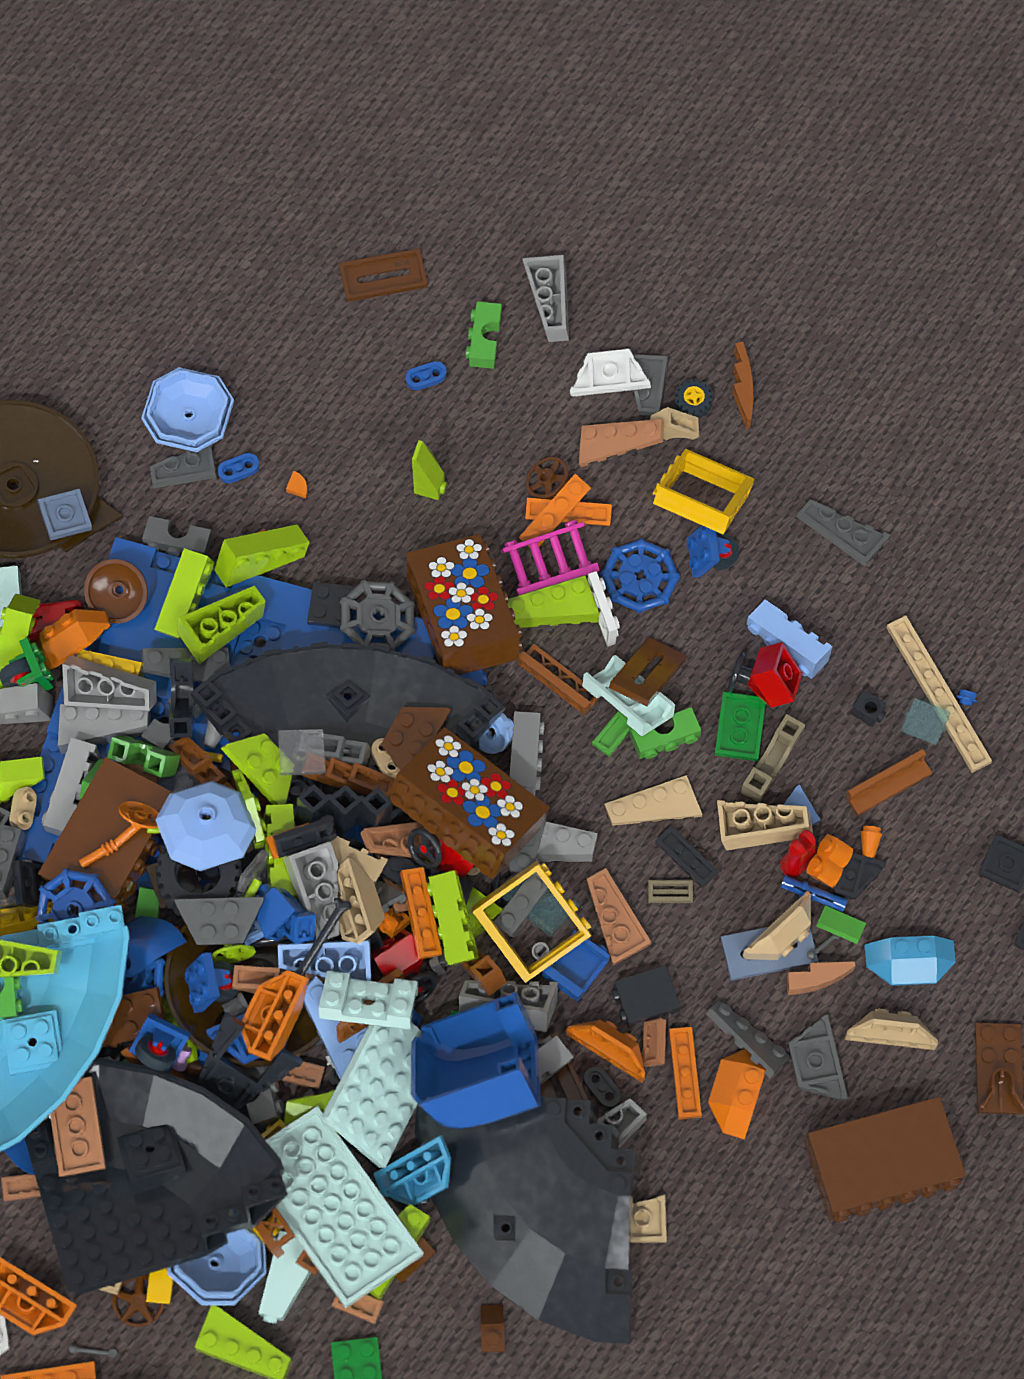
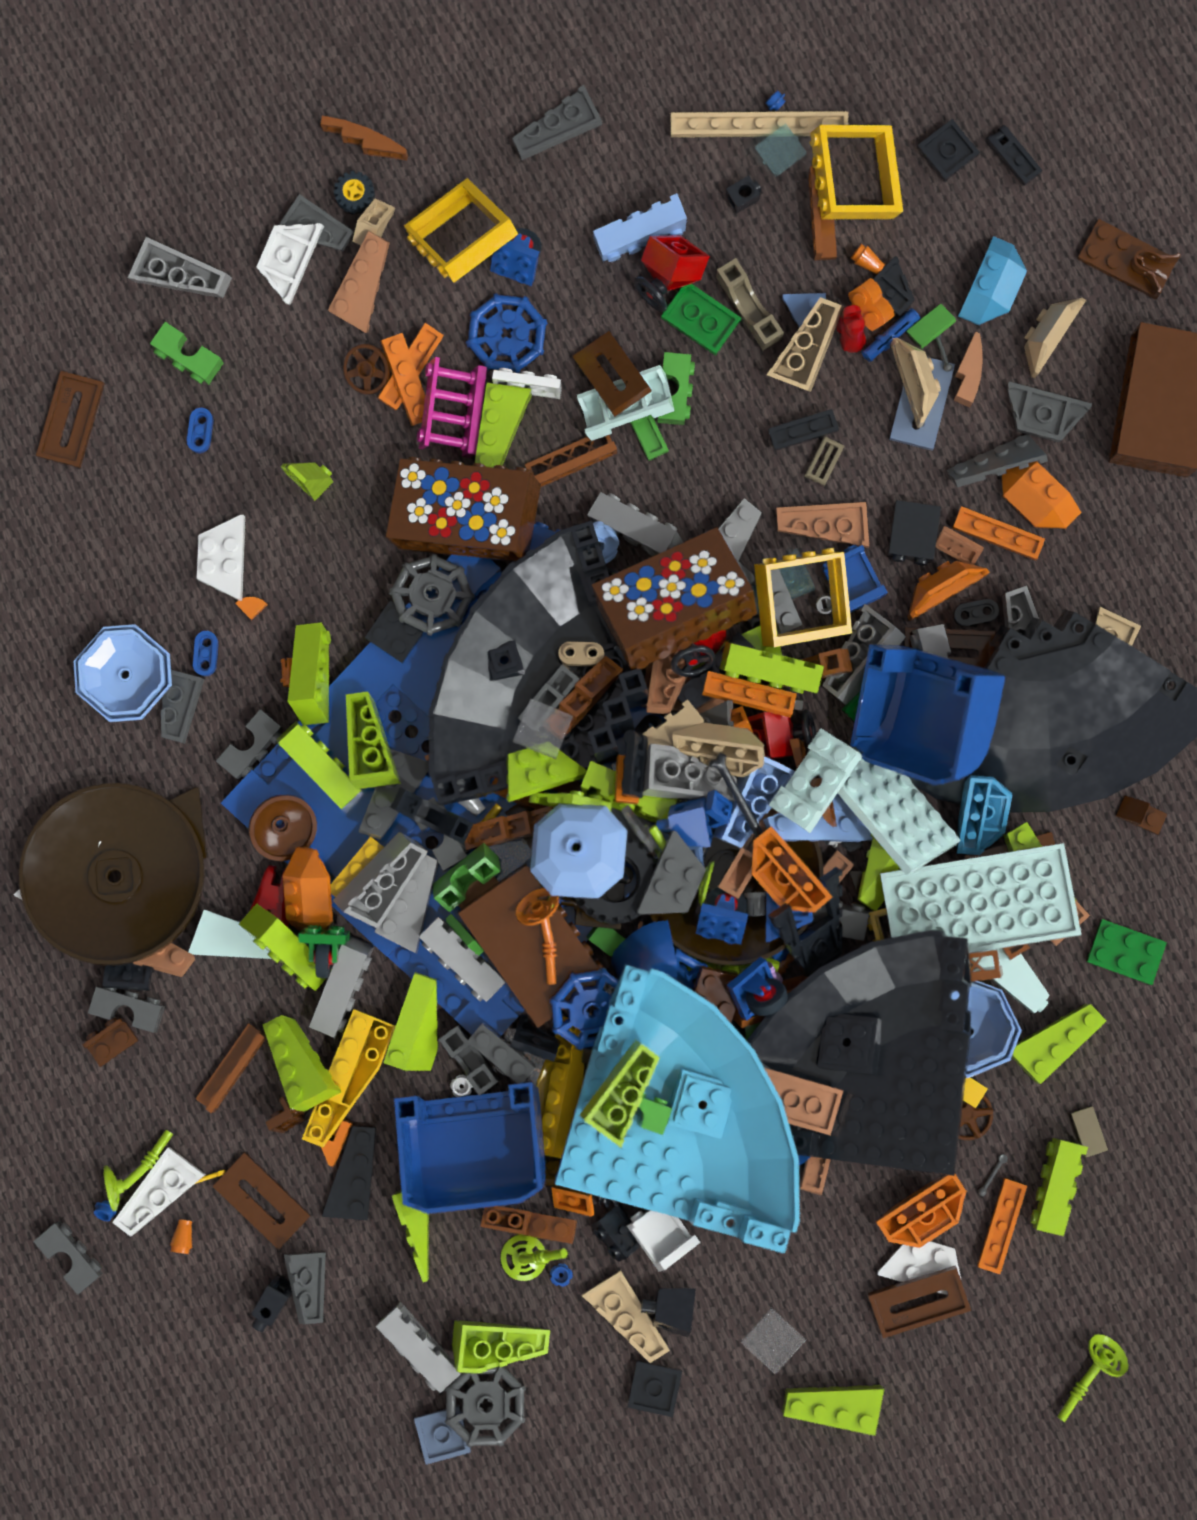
camera: 60 degrees left, 15 degrees up
(23, 807) = (457, 1013): tan plate -> none
(64, 514) = (177, 840): sand blue plate -> none
(327, 443) = (222, 557): none -> white wing
(412, 732) = (575, 619): reddish brown wing -> none
(665, 801) = (736, 427): tan wing -> none
(925, 839) = (887, 167): none -> yellow window

